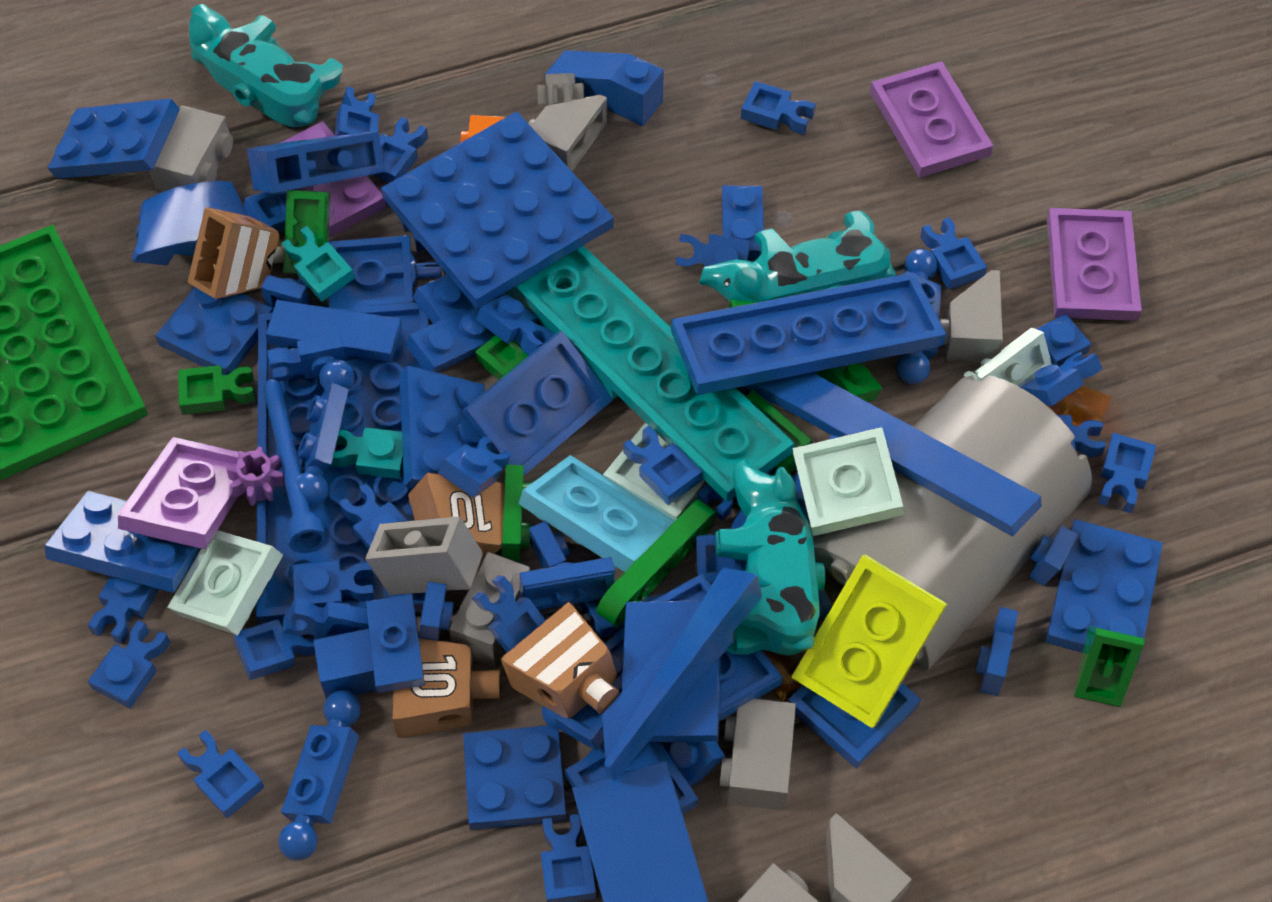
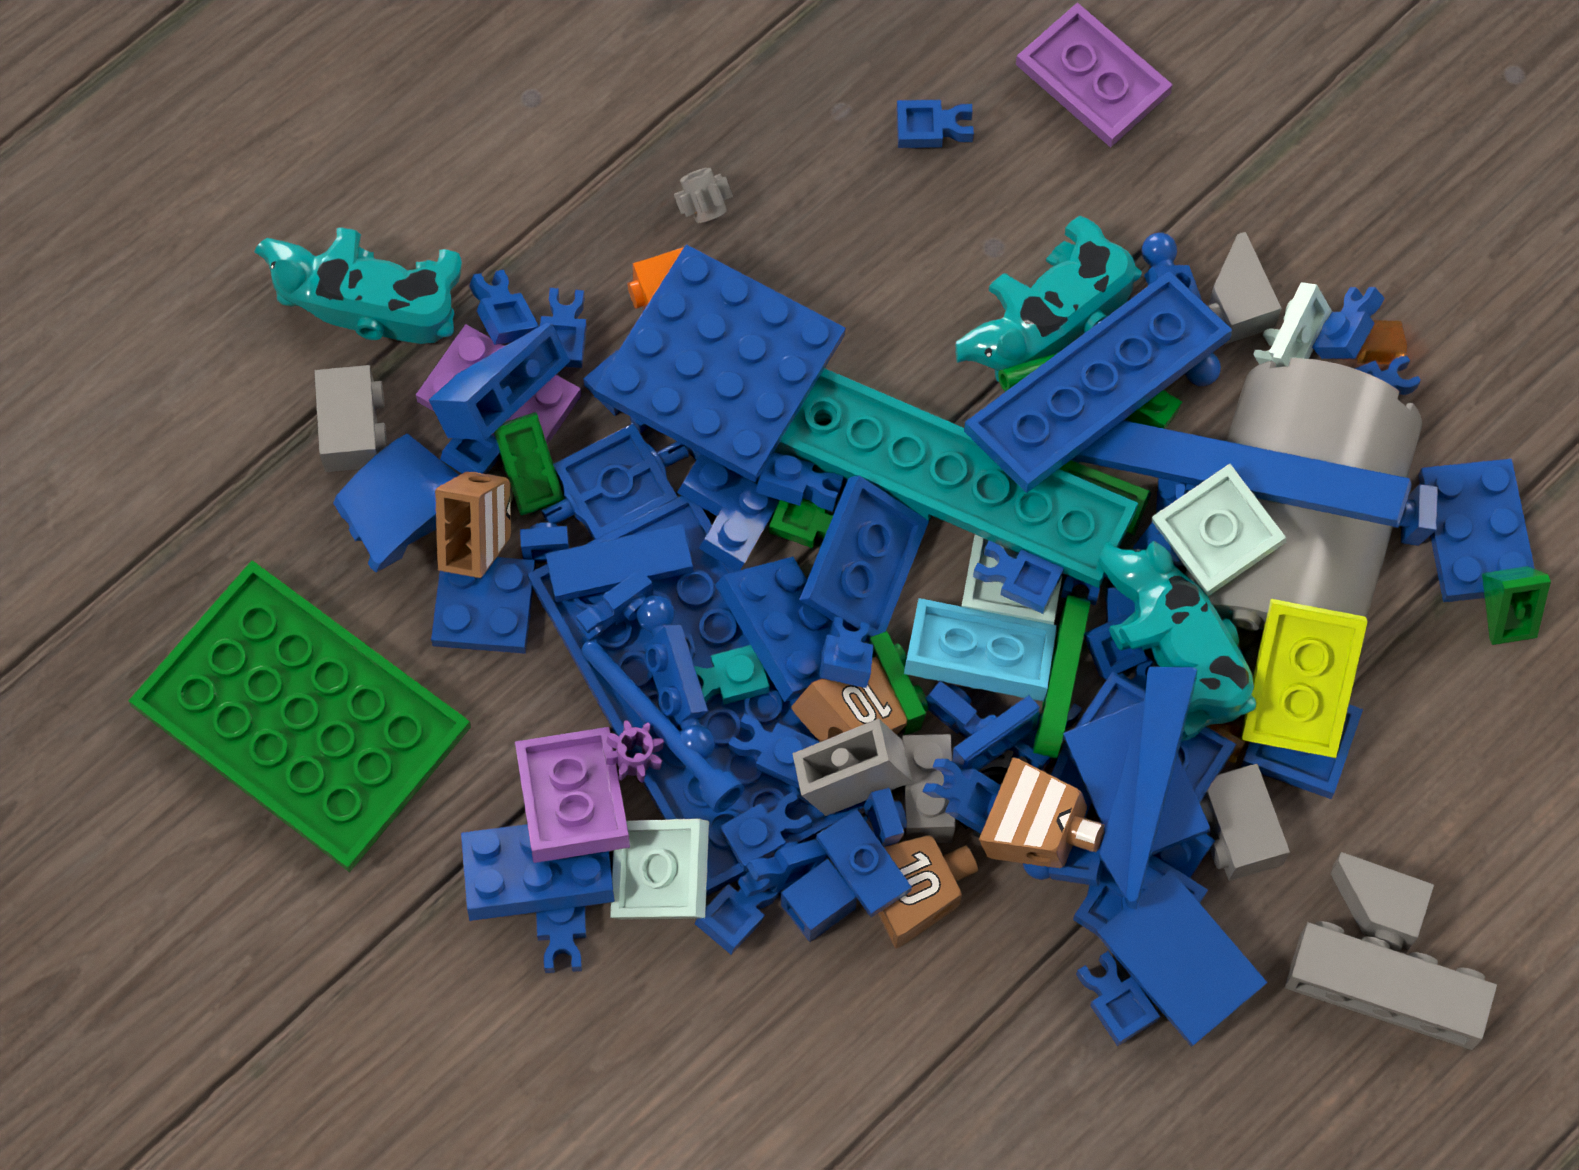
camera: 25 degrees left, 10 degrees up
(114, 139) = (260, 436): blue plate -> none
(129, 670) = (604, 995): blue plate -> none
(208, 388) = (519, 676): green plate -> none
(224, 778) = (762, 1059): blue plate -> none
(318, 267) = (571, 501): teal plate -> none
(319, 775) = (849, 1016): blue plate -> none
(513, 777) = (1026, 940): blue plate -> none
(572, 127) = (732, 231): light grey slope -> none
(626, 81) = (748, 156): blue slope -> none
(716, 251) = (954, 320): blue plate -> none
(743, 214) = (957, 269): blue plate -> none
(956, 259) = (1191, 227): blue plate -> none
(994, 660) = (1411, 640): blue plate -> none
(1064, 339) = (1331, 277): blue plate -> none
(1093, 264) = (1325, 182): medium lavender plate -> none
(1127, 468) = (1449, 392): blue plate -> none

